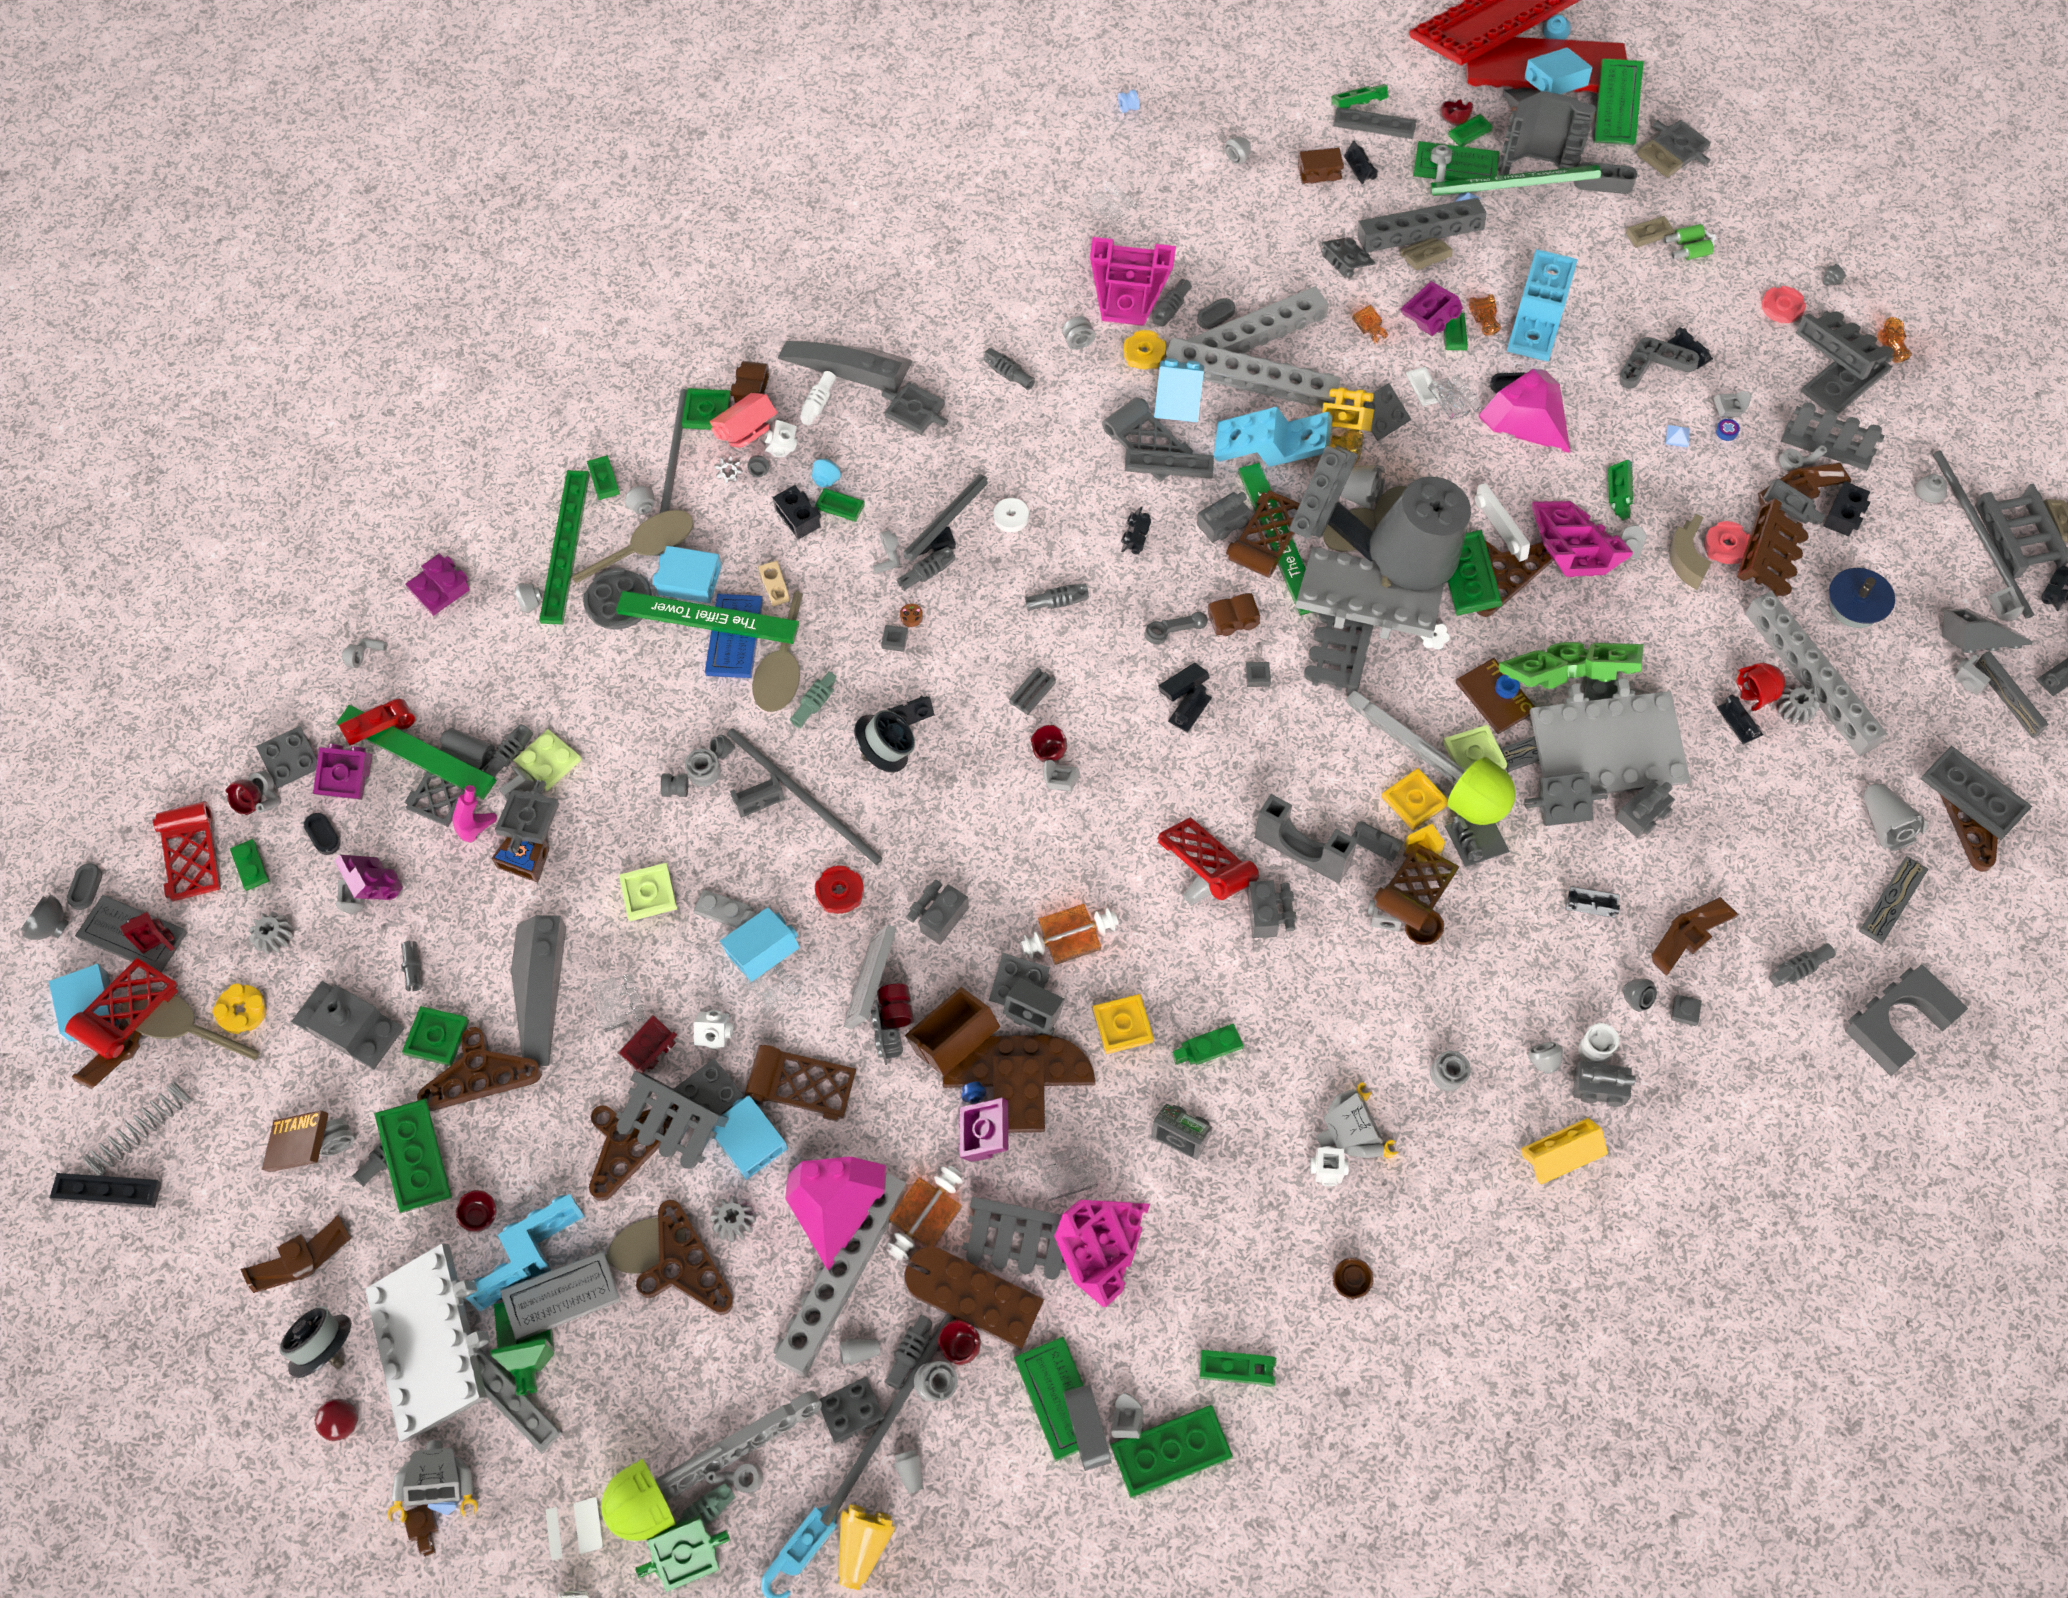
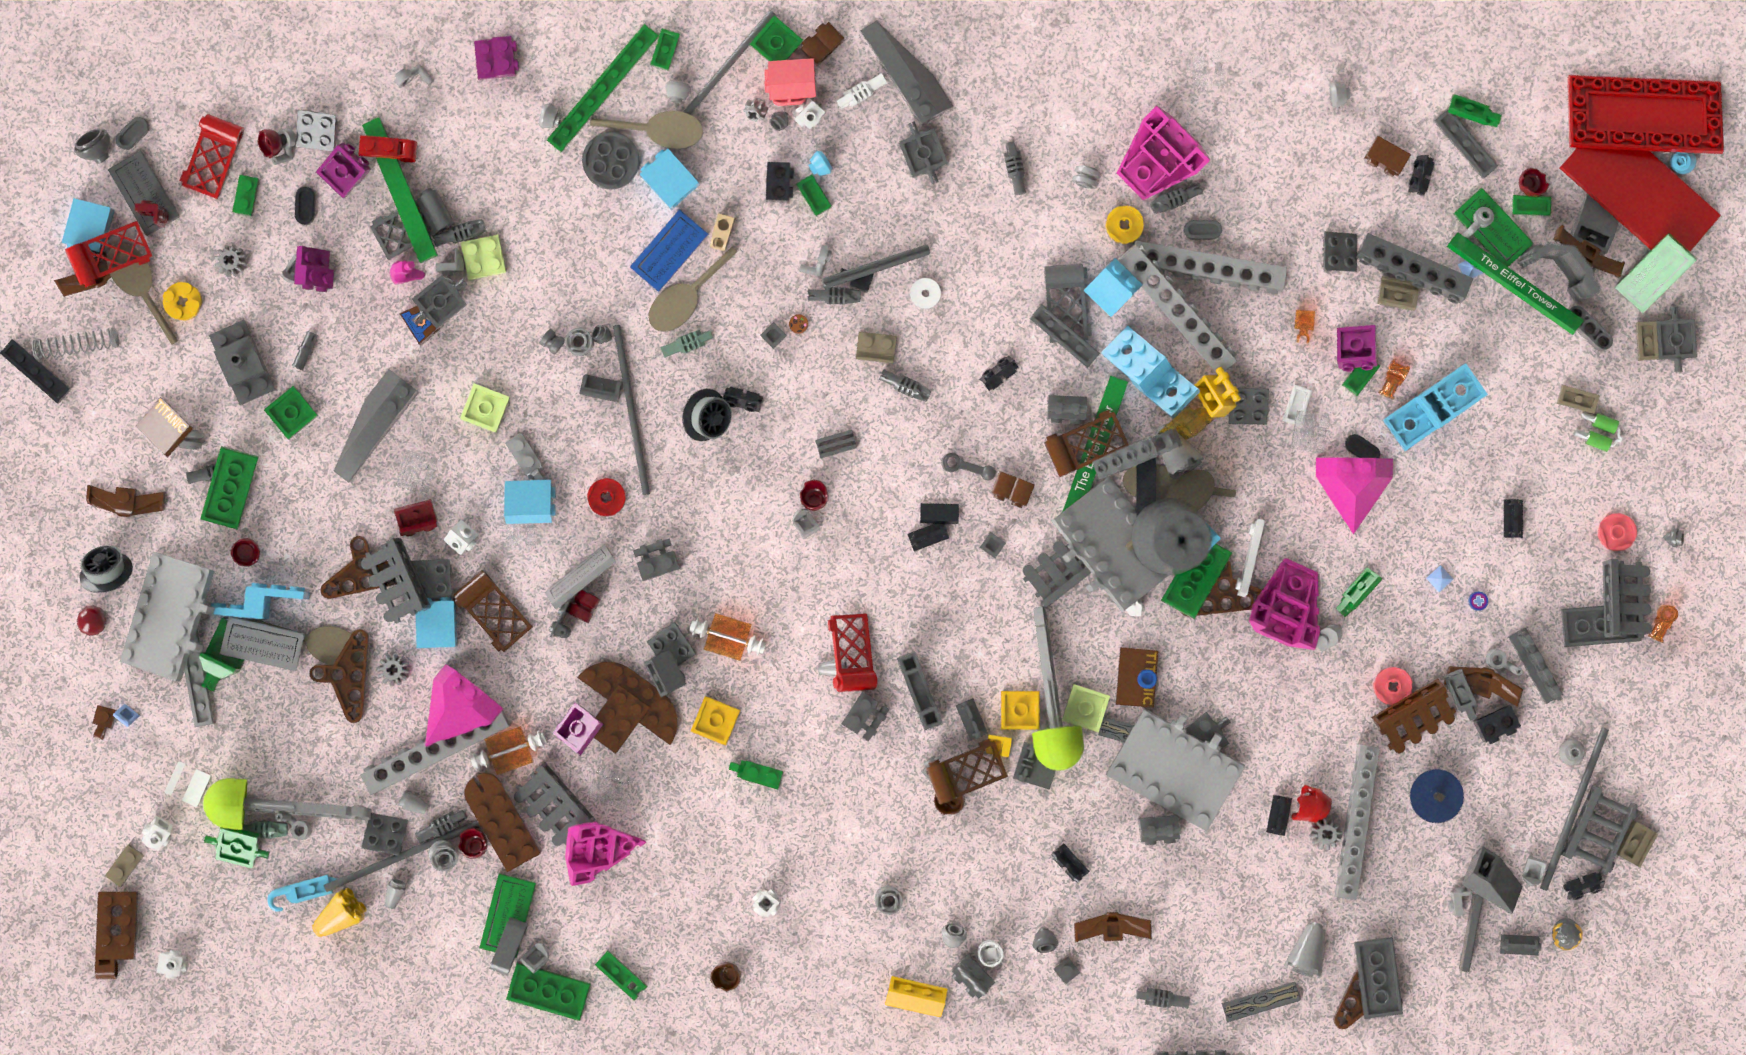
camera: 30 degrees right, 25 degrees up
(432, 1478) = (125, 700): light grey torso -> none
(491, 1069) = (293, 454): reddish brown beam -> none
(707, 617) = (658, 226): green tile -> none
(952, 1031) = (604, 652): reddish brown piece -> none
(973, 1092) = (591, 697): blue plate -> none
(1002, 587) = (876, 347): none -> dark tan plate
(1181, 1130) = (697, 816): dark grey slope -> none
(1353, 1126) = (800, 890): light grey torso -> none
(1558, 72) = (1627, 217): medium azure brick -> none
(1566, 798) = (1113, 784): dark grey plate -> none
(1574, 661) = (1201, 695): bright green plate -> none
(1650, 354) = (1478, 501): dark grey beam -> none
(1683, 556) = (1350, 678): dark tan arch -> none
(1732, 404) = (1497, 585): light grey plate -> none

